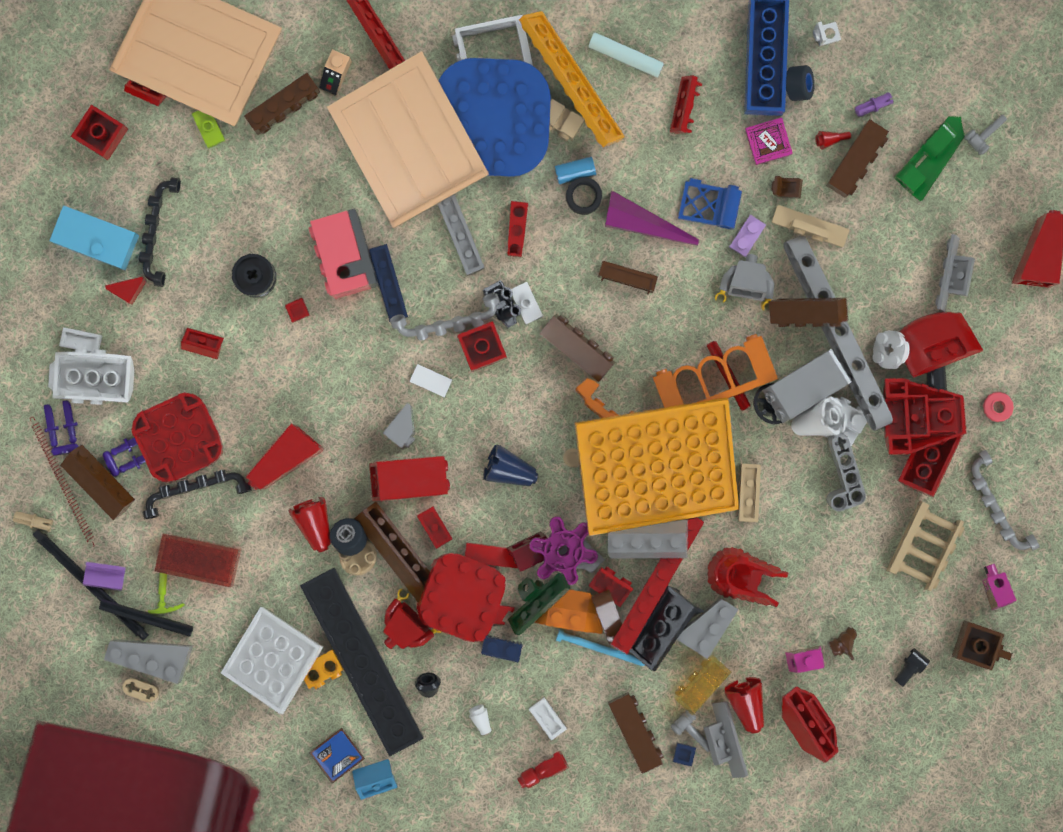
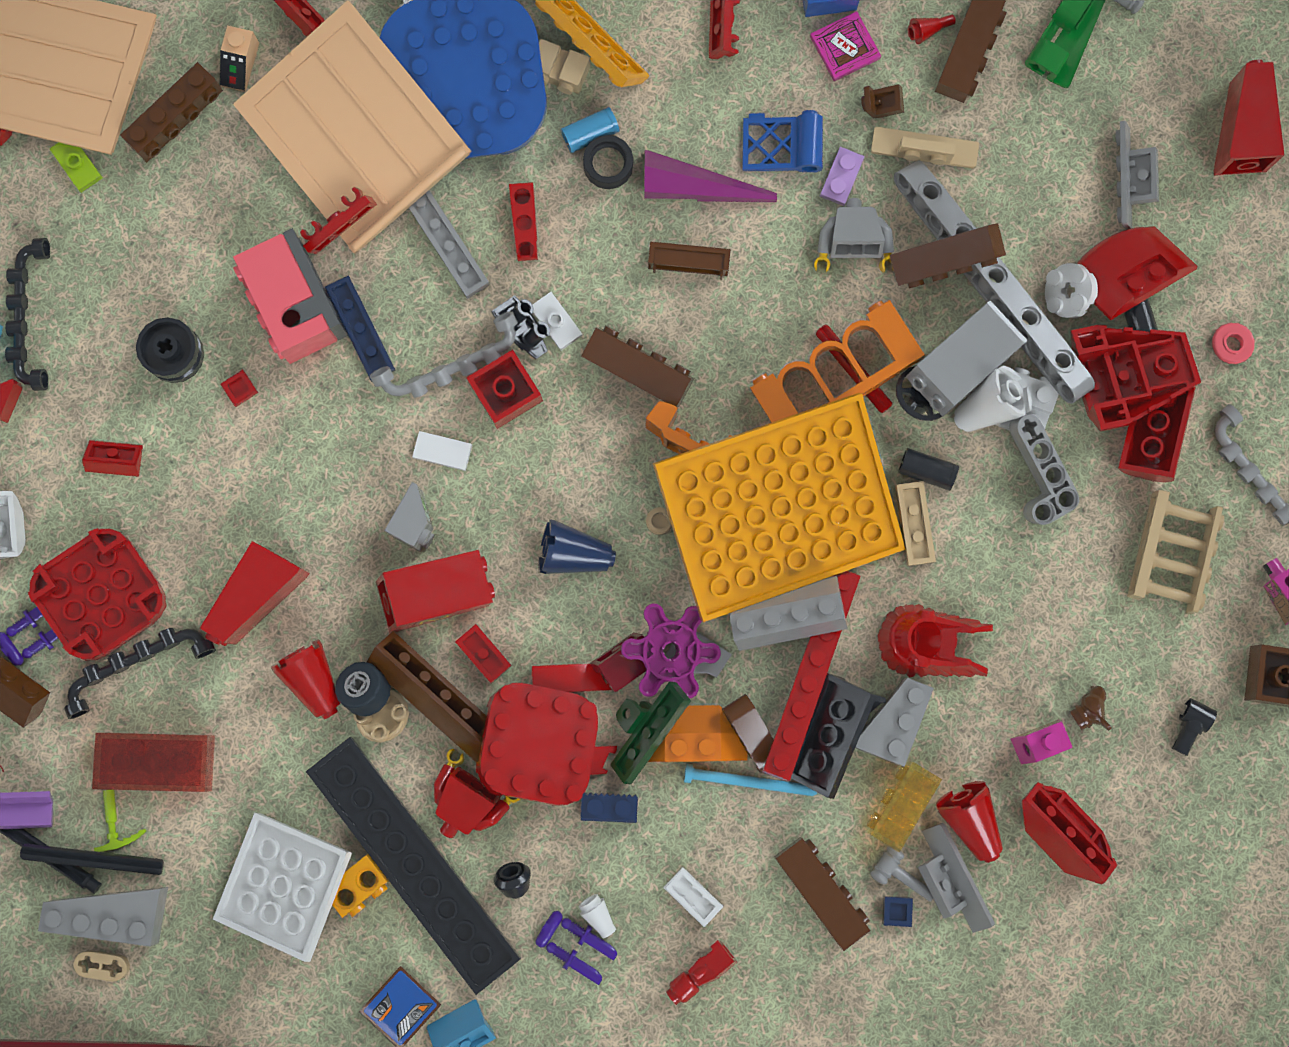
camera: 10 degrees left, 5 degrees down
(386, 205) = (338, 222): none -> red plate
(447, 720) = (571, 959): none -> dark purple piece
(606, 580) = (739, 681): red bracket -> none
(766, 456) = (928, 469): none -> black pin

